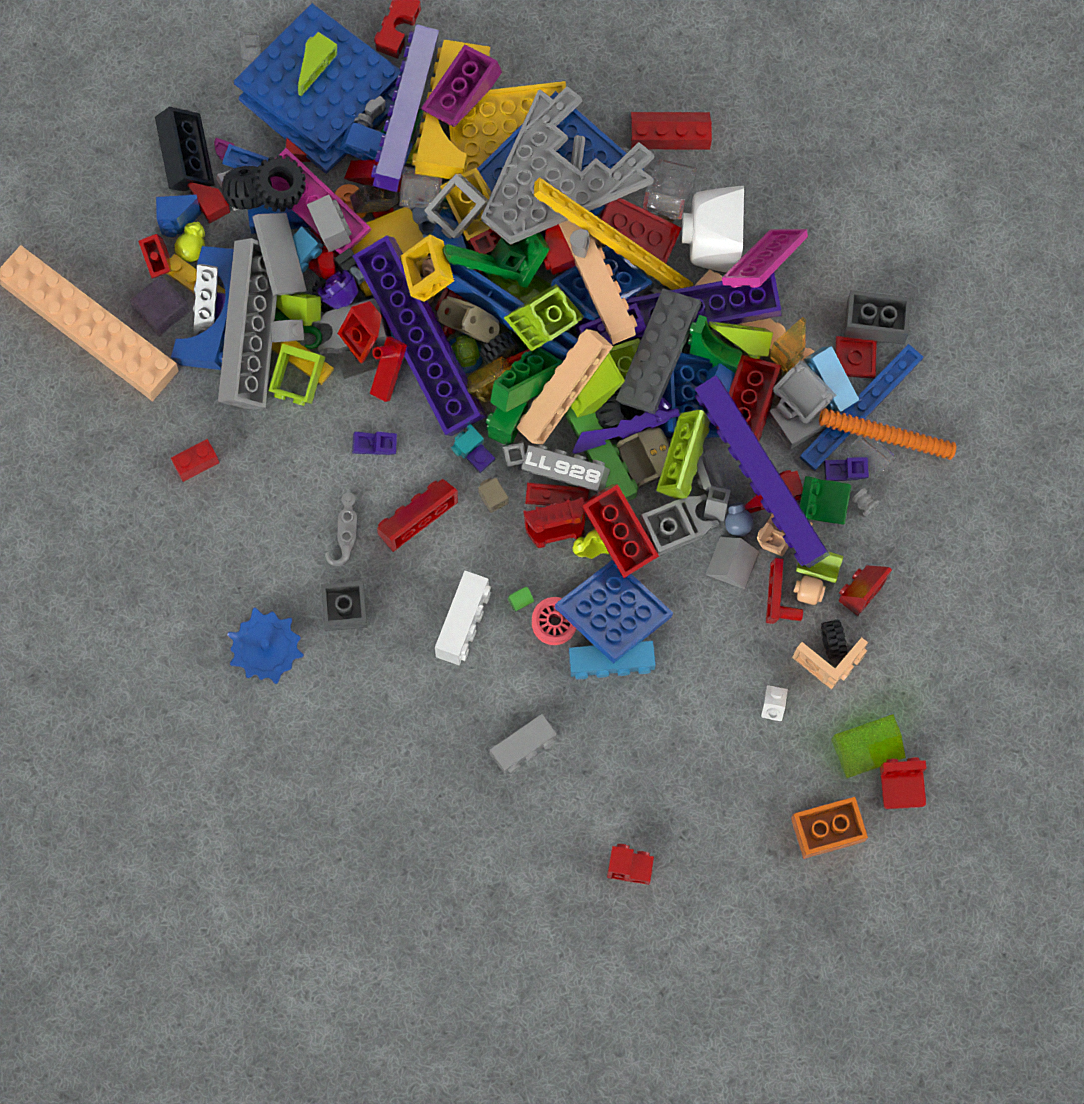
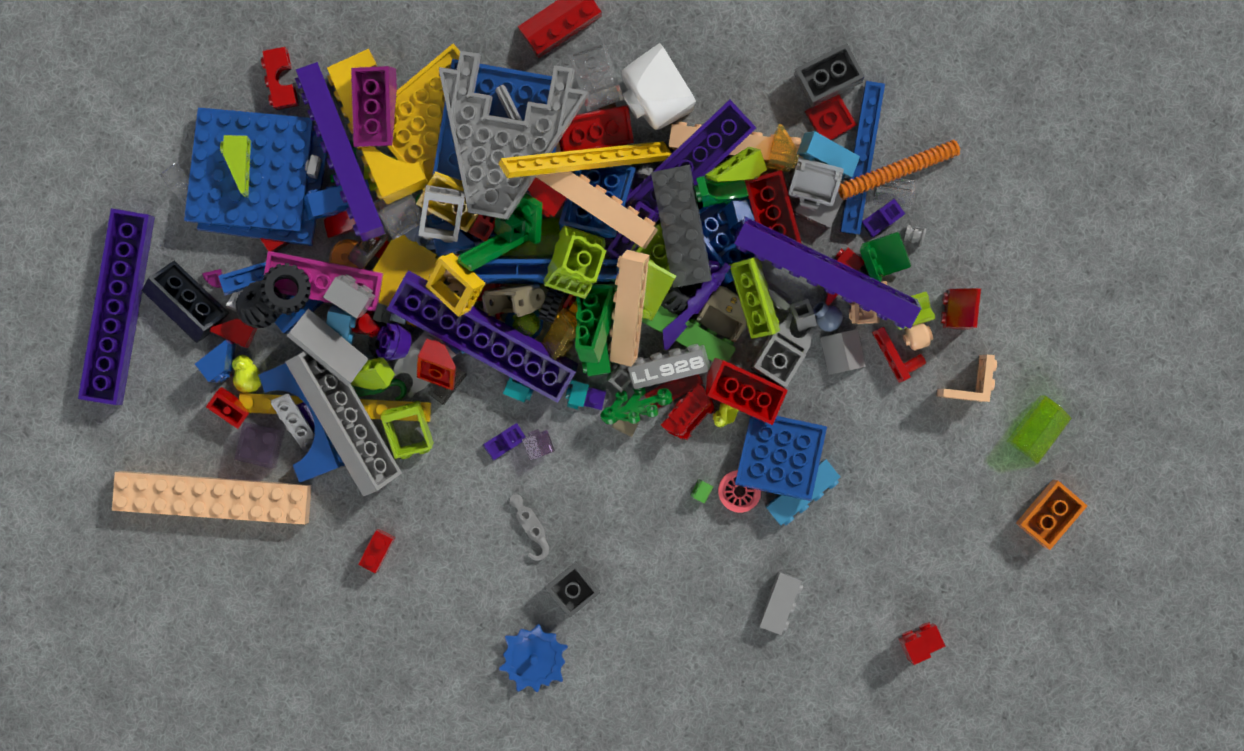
camera: 30 degrees left, 15 degrees up
(123, 117) = (116, 307): none -> dark purple brick
(287, 330) = (376, 402): light grey brick -> none
(364, 119) = (313, 183): light grey plate -> none
(388, 368) = (475, 377): red piece -> none
(402, 462) = (538, 444): none -> clear purple brick
(417, 405) = (518, 390): none -> teal brick
(418, 514) = (578, 478): red slope -> none
(462, 617) = (670, 540): white brick -> none
(504, 481) = (635, 407): none -> green plant
(580, 242) = (564, 184): light grey brick -> none
(764, 257) = (713, 90): dark pink plate -> none
(774, 703) = (947, 442): white bracket -> none
(834, 639) = (962, 364): black tyre -> none
(903, 783) = (1084, 441): red bracket -> none

